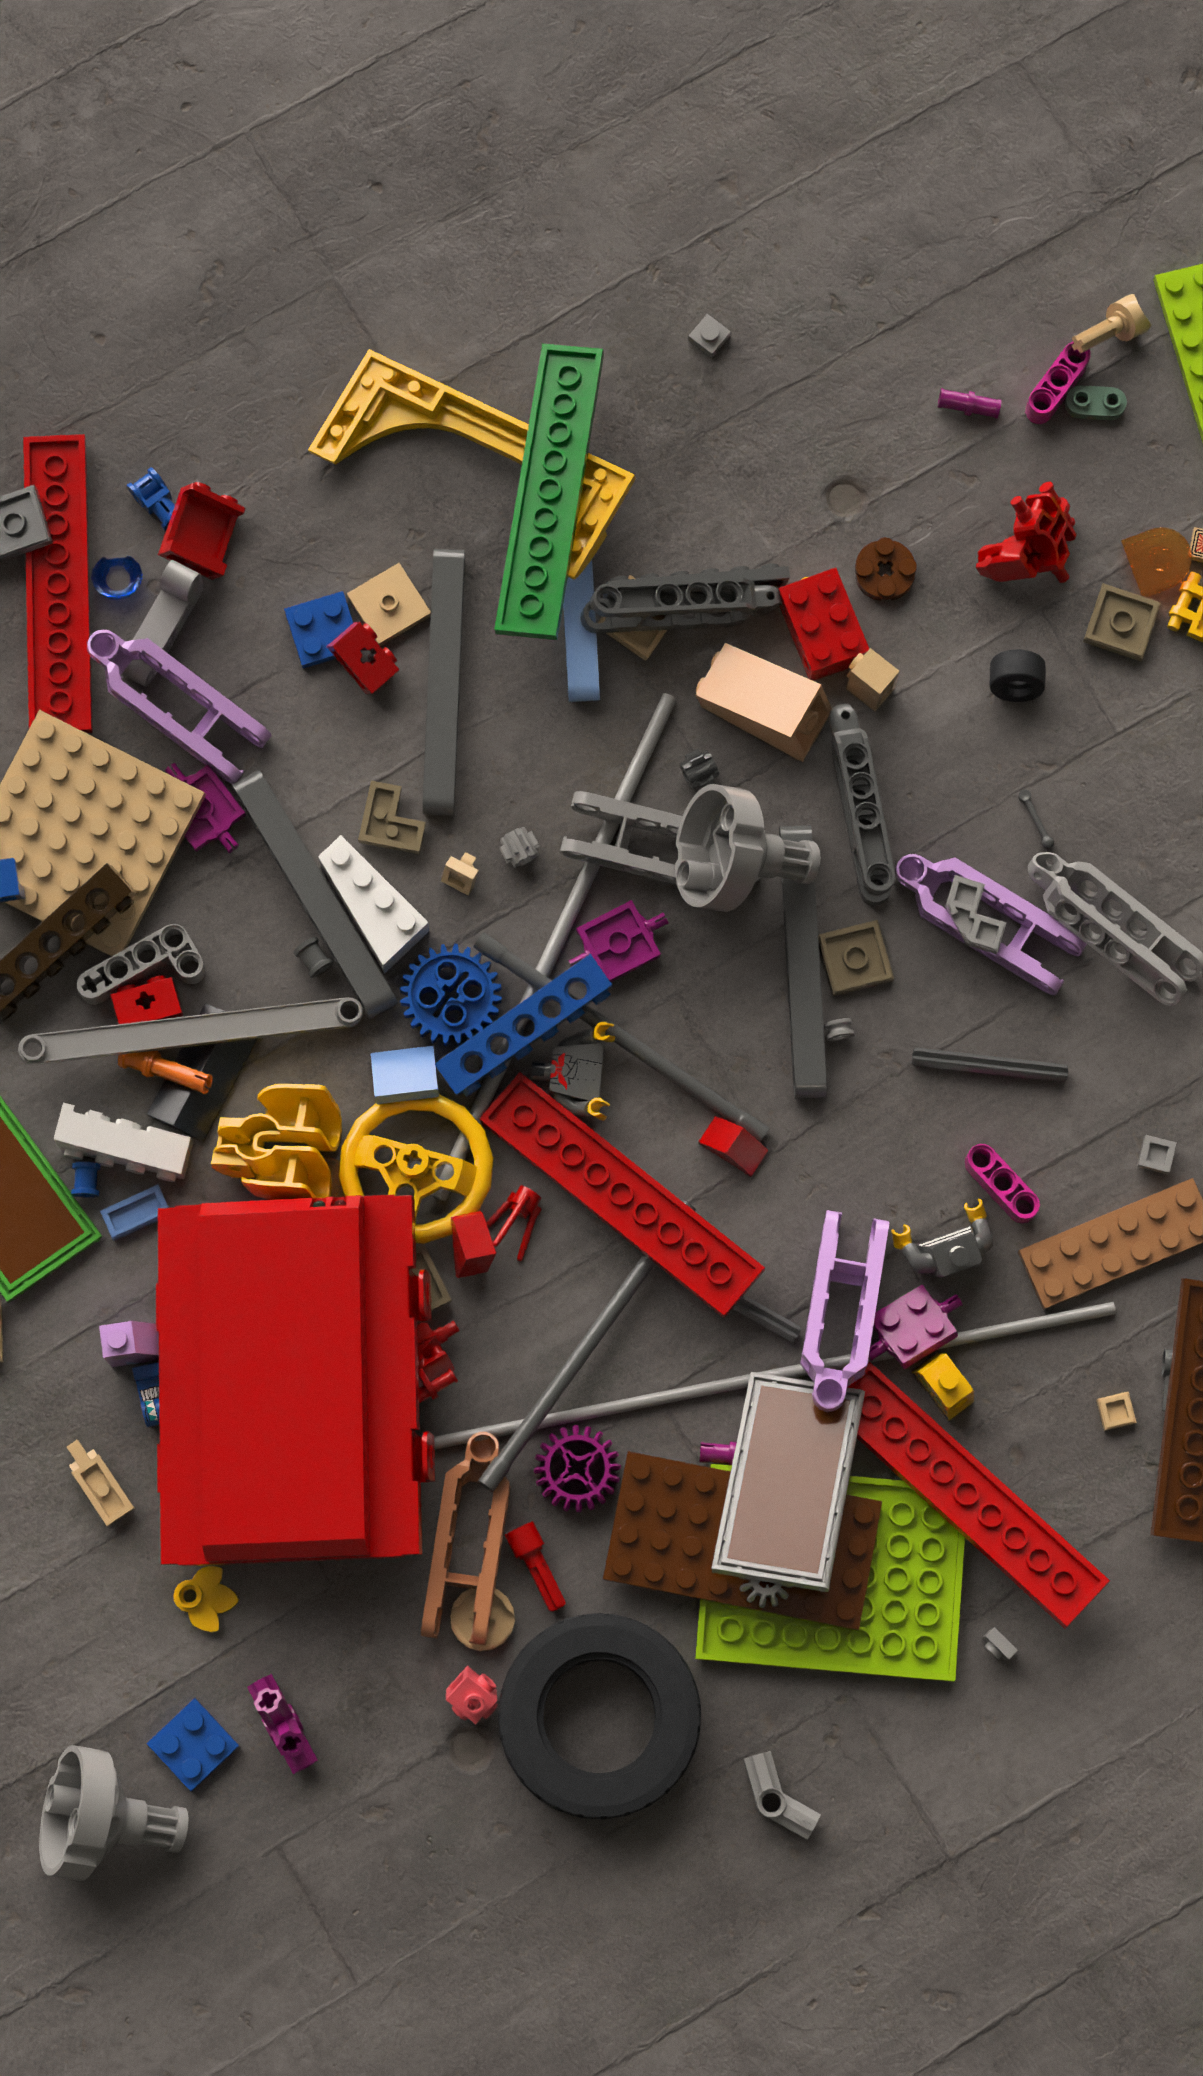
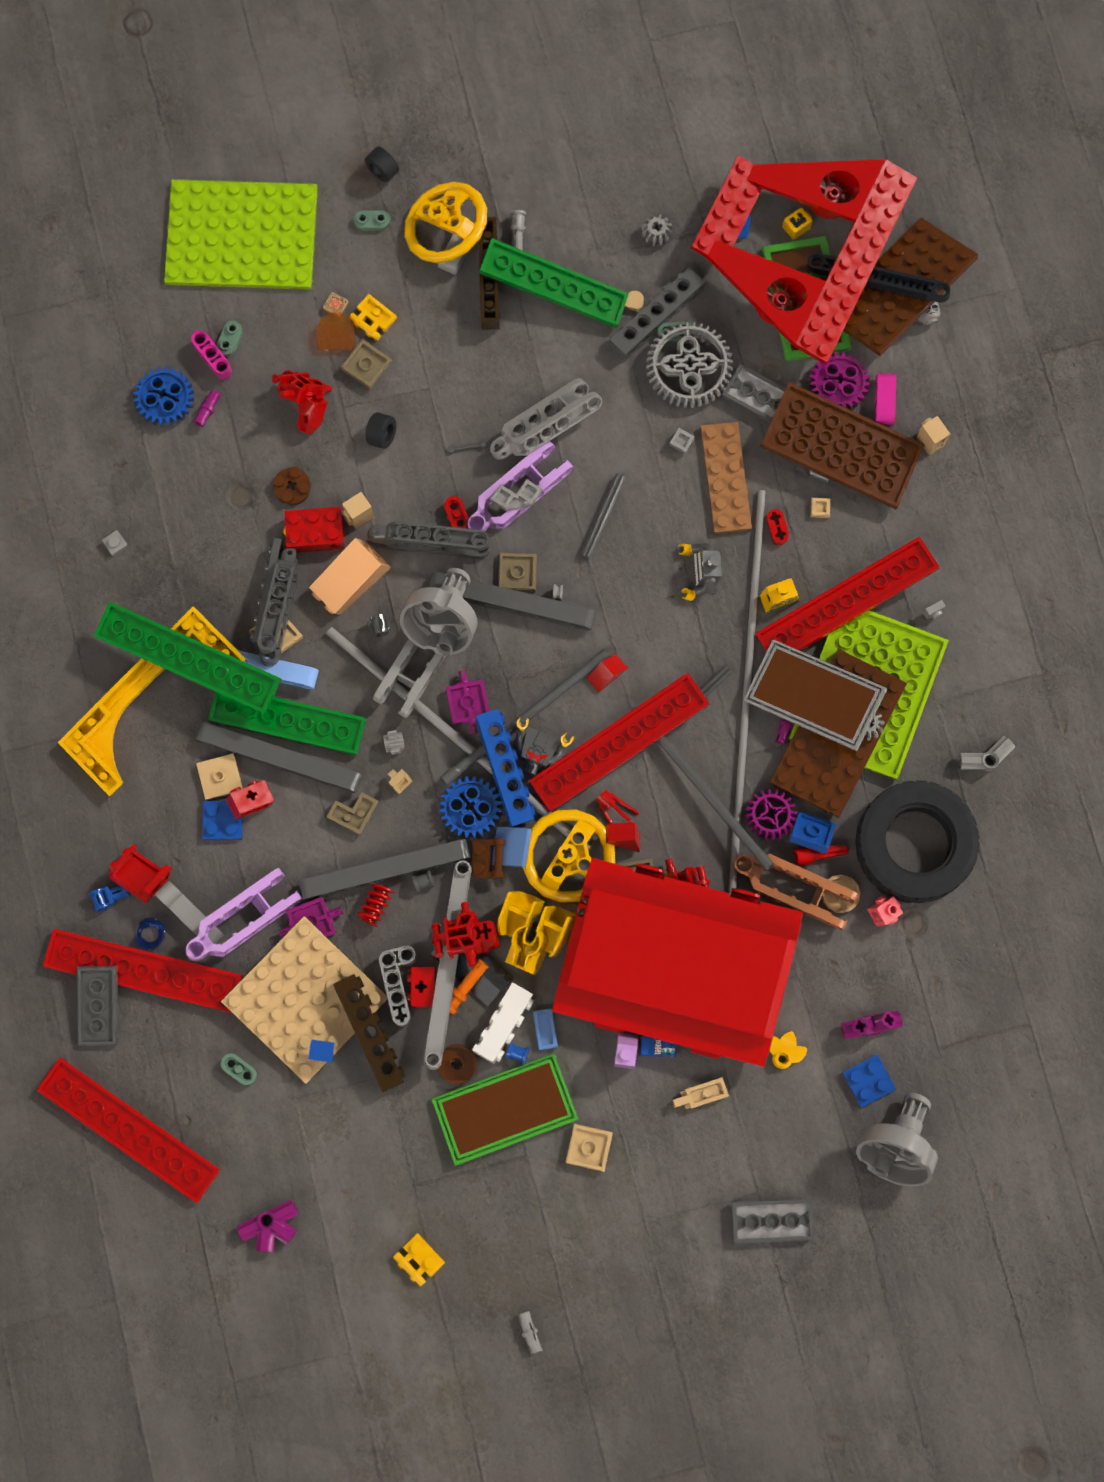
camera: 70 degrees left, 0 degrees up
(29, 1083) = (465, 1056): none -> reddish brown plate
(238, 1041) = (465, 936): none -> red piece
(254, 895) = (375, 904): none -> red piece
(373, 1038) = (482, 859): none -> reddish brown plate
(378, 909) = (401, 837): white wedge -> none
(506, 695) = (293, 722): none -> green plate
(566, 1543) = (812, 832): none -> blue plate
(831, 1384) = (765, 655): lavender piece -> none
(914, 1326) = (742, 603): plate -> none
(917, 835) = (458, 514): none -> red plate
(939, 330) = (170, 382): none -> blue gear
(999, 1168) = (679, 522): dark pink beam -> none
(1056, 1344) = (781, 526): none -> red beam
(1122, 320) = (187, 306): tan piece -> none

